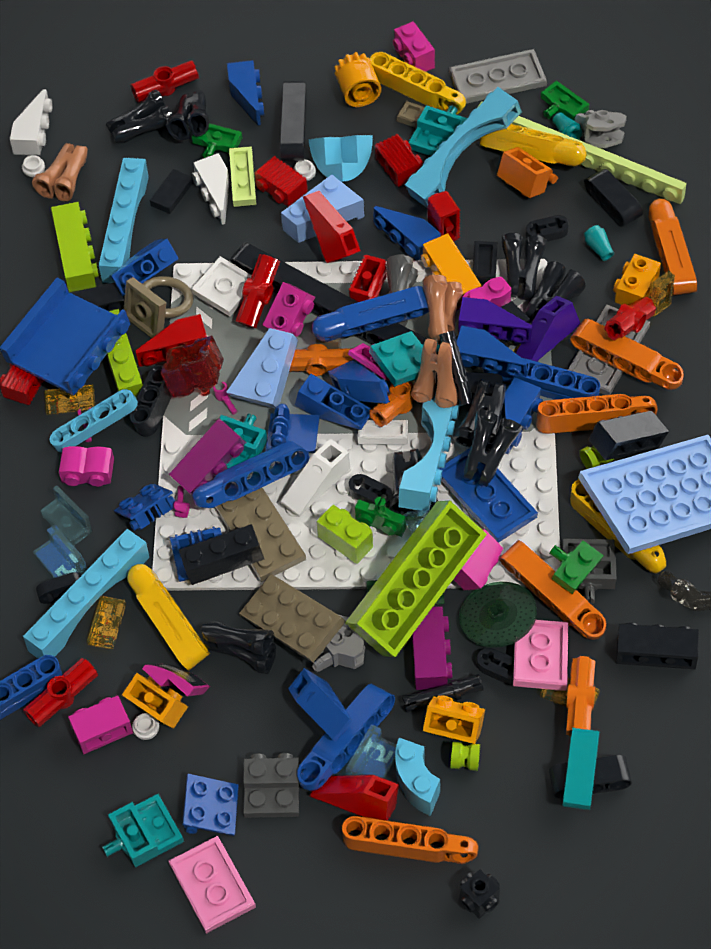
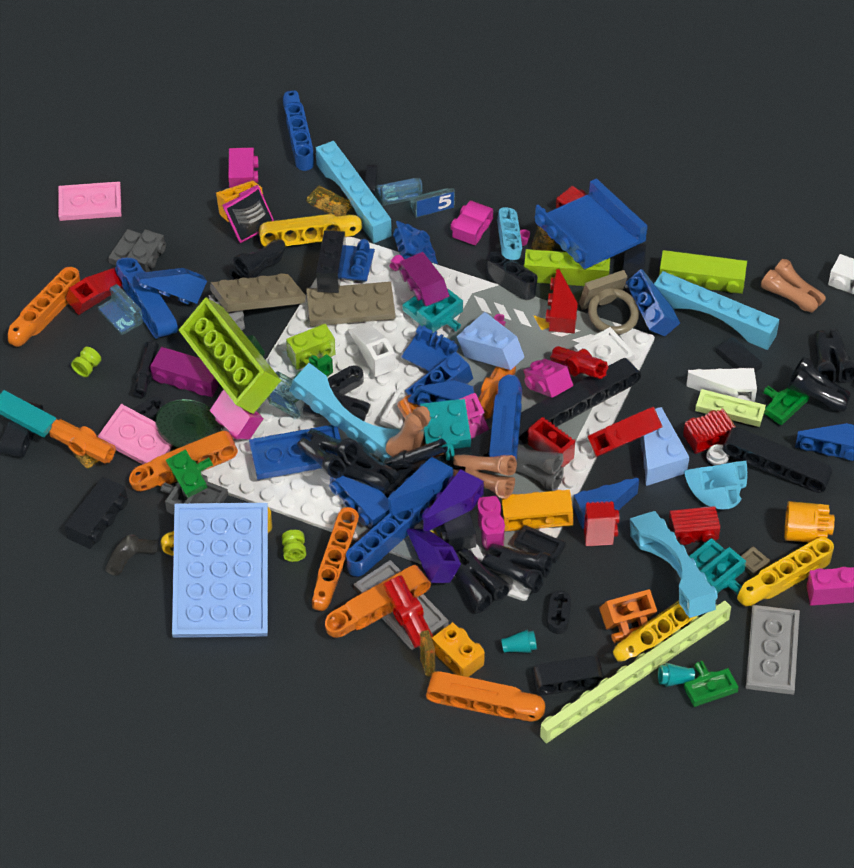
camera: 110 degrees right, 5 degrees down
(33, 165) = (811, 272): white plate -> none
(49, 702) = (283, 159): red piece -> none
(143, 830) = (148, 172): teal plate -> none
(192, 367) = (519, 296): clear red brick -> none
(210, 805) = (145, 211): hinge -> none
(261, 475) = (394, 303): blue piece -> none
(414, 778) = (89, 325): medium azure brick -> none
(454, 719) = (115, 361): light orange brick -> none
(602, 126) = (655, 696): light grey hinge -> none
(628, 435) = (292, 563): black brick -> none

